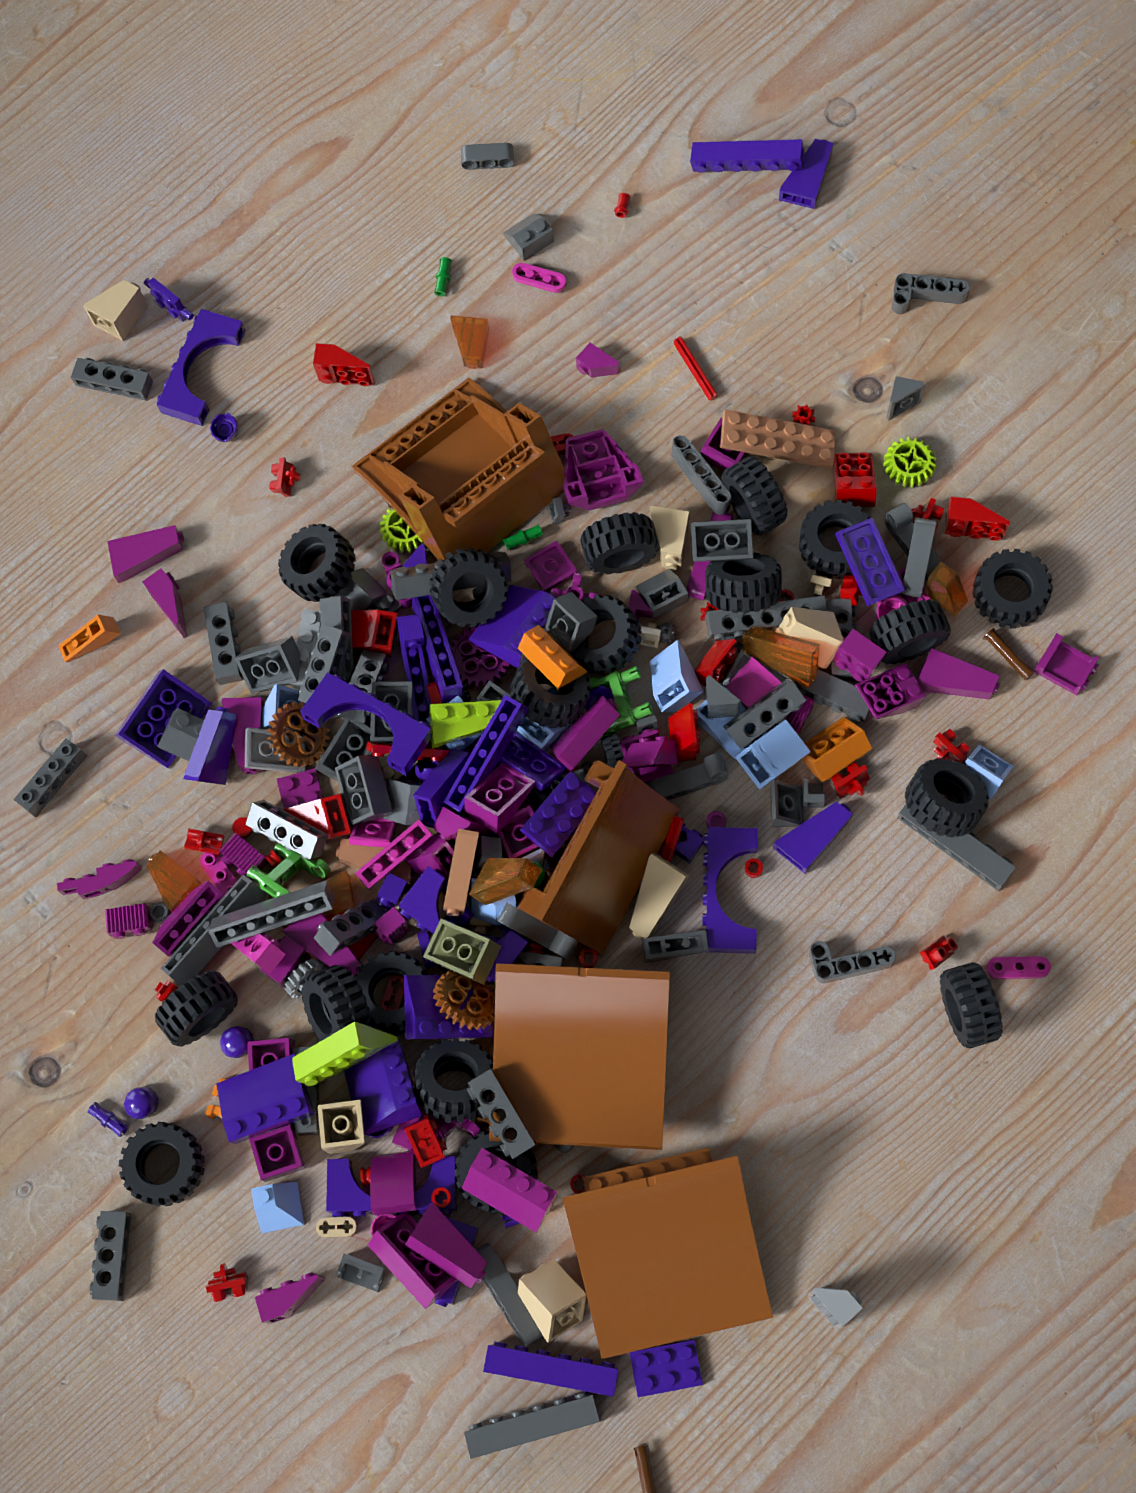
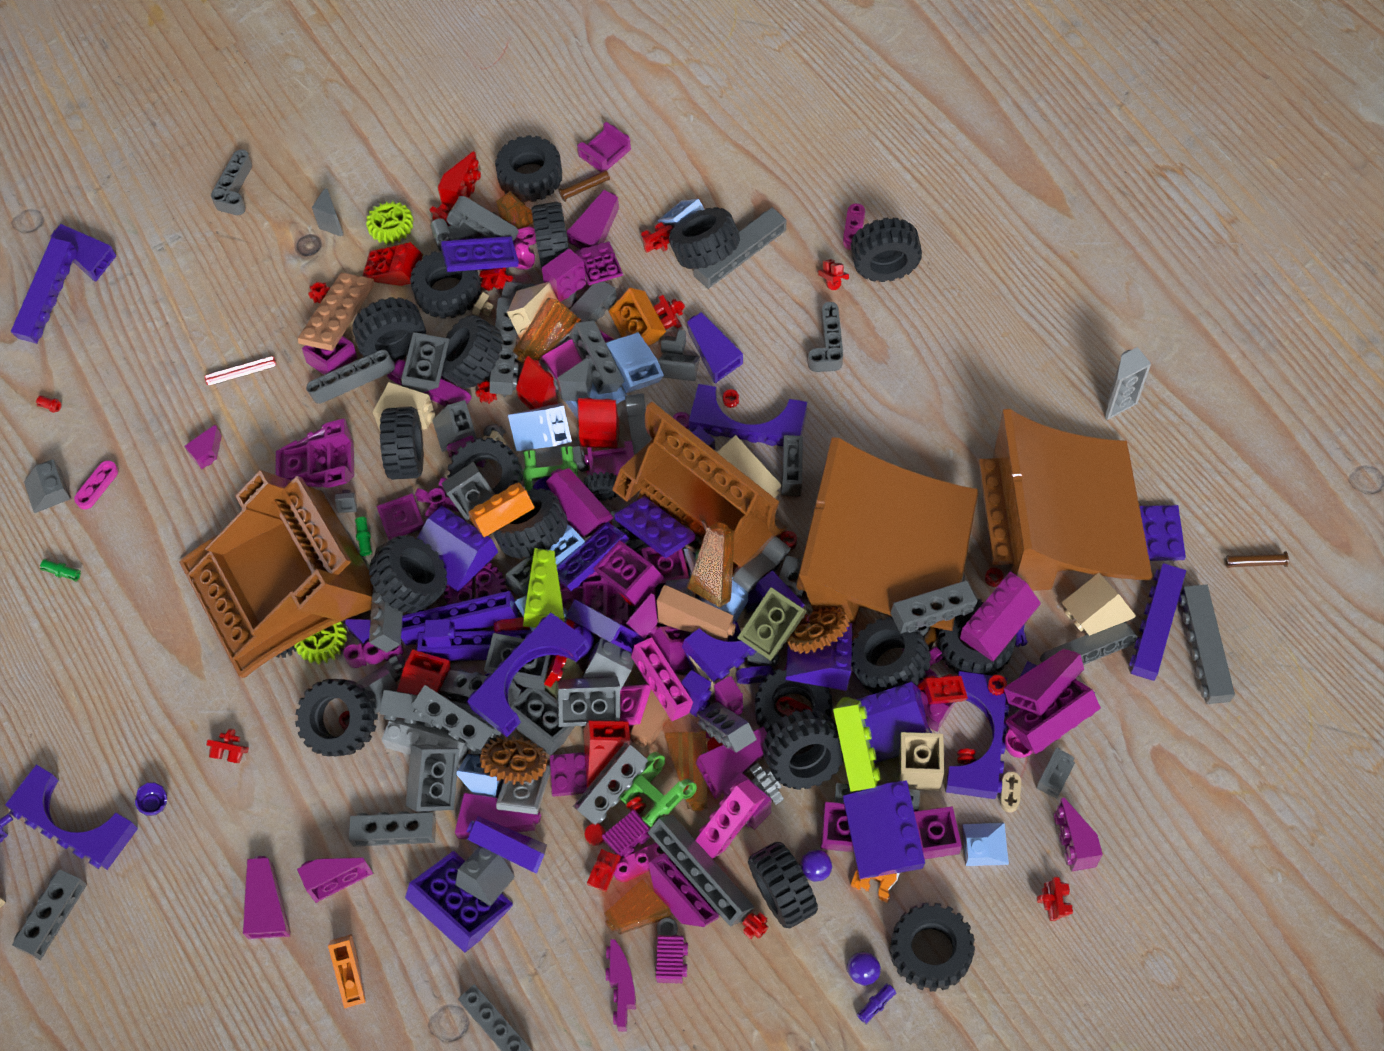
camera: 85 degrees left, 10 degrees down
(117, 1266) = (1051, 1012): dark grey brick -> none
(271, 913) = (701, 794): dark grey brick -> none
(339, 366) = (125, 672): red slope -> none
(393, 1183) = (977, 728): magenta slope -> none
(471, 339) = (139, 553): clear orange slope -> none
(487, 750) = (585, 574): dark purple brick -> none
(651, 753) = (611, 450): magenta slope -> none

